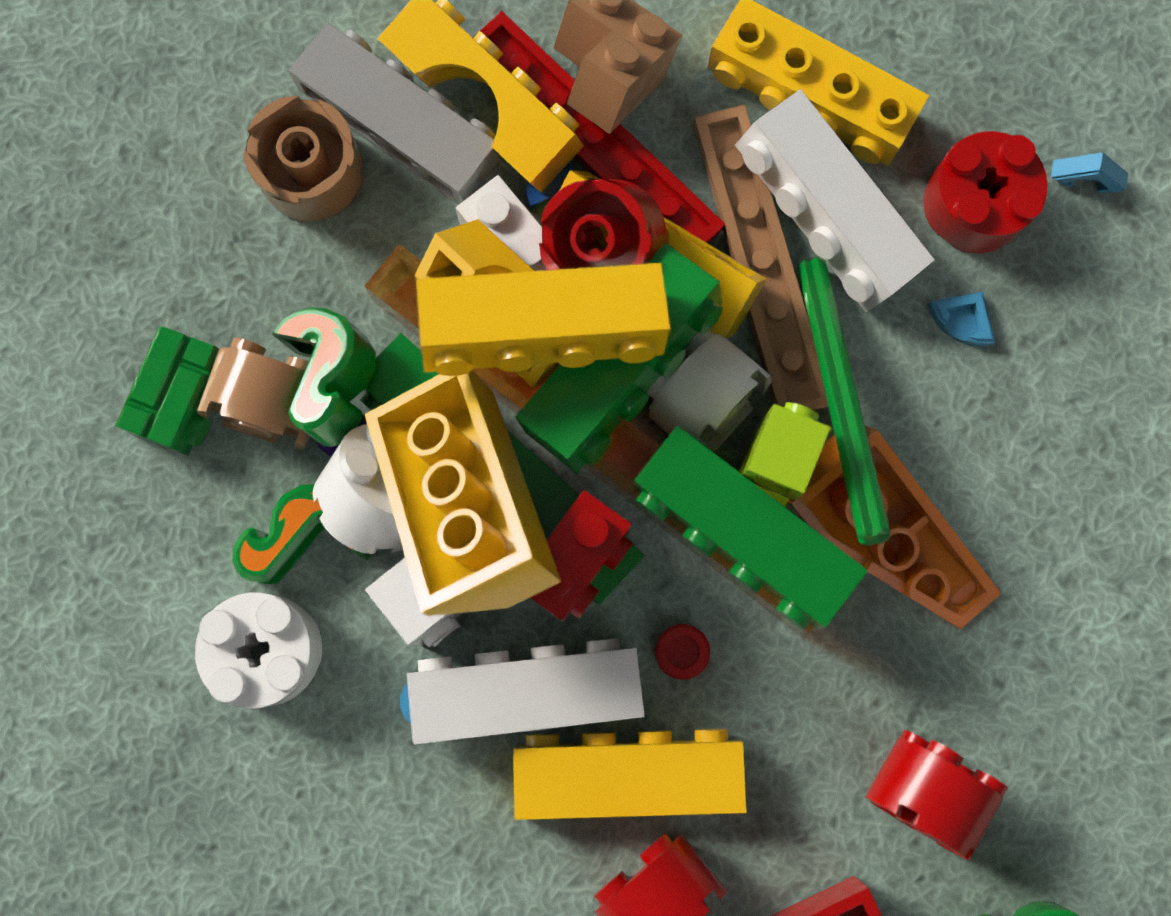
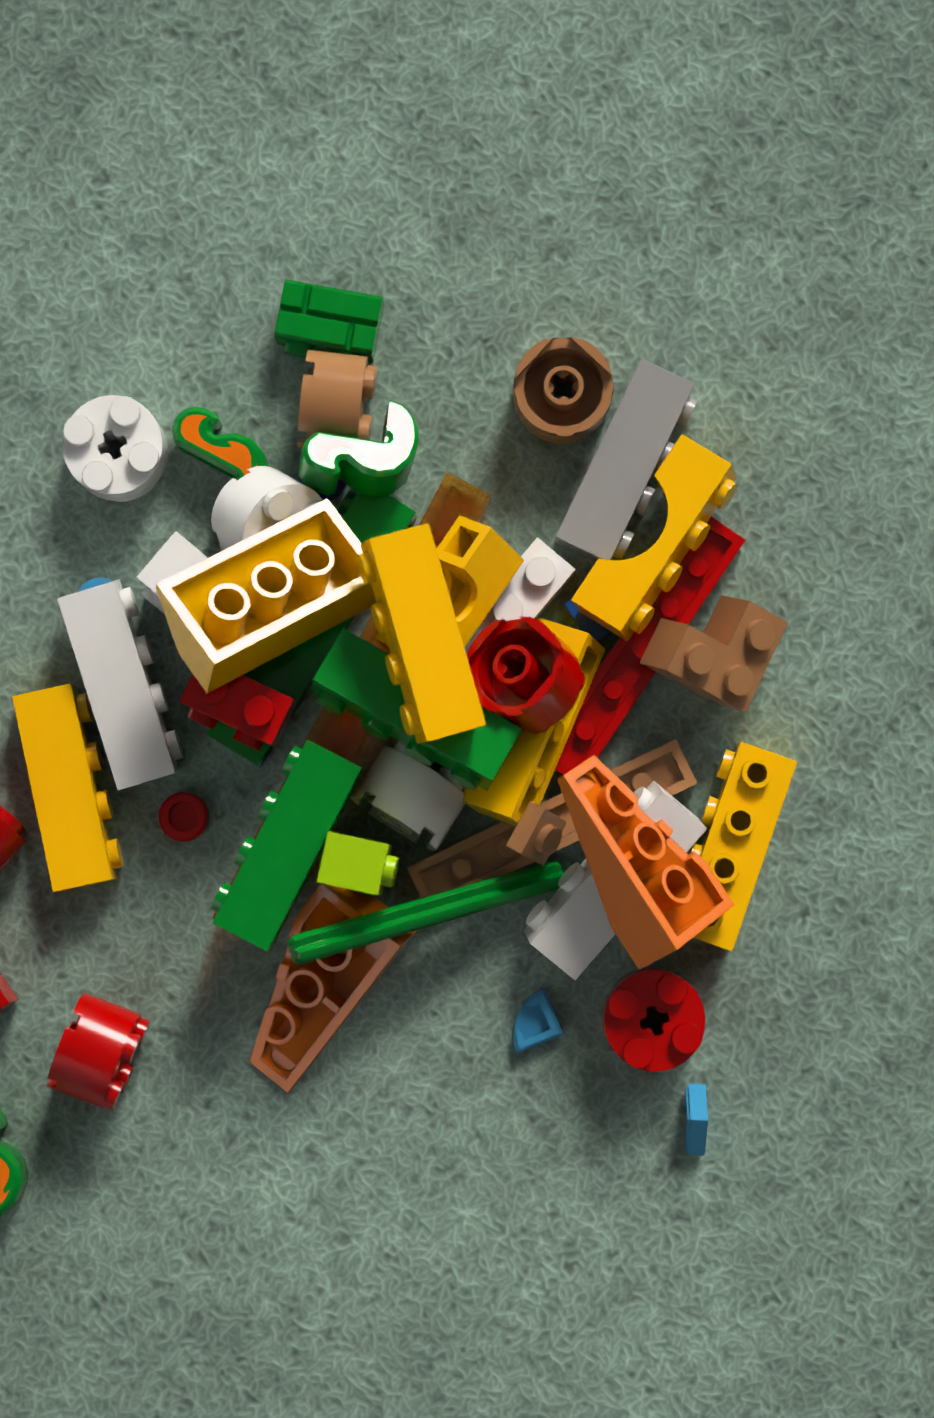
camera: 85 degrees right, 5 degrees up
(774, 265) = (537, 834): none -> medium nougat plate
(861, 149) = (645, 880): none -> orange wedge

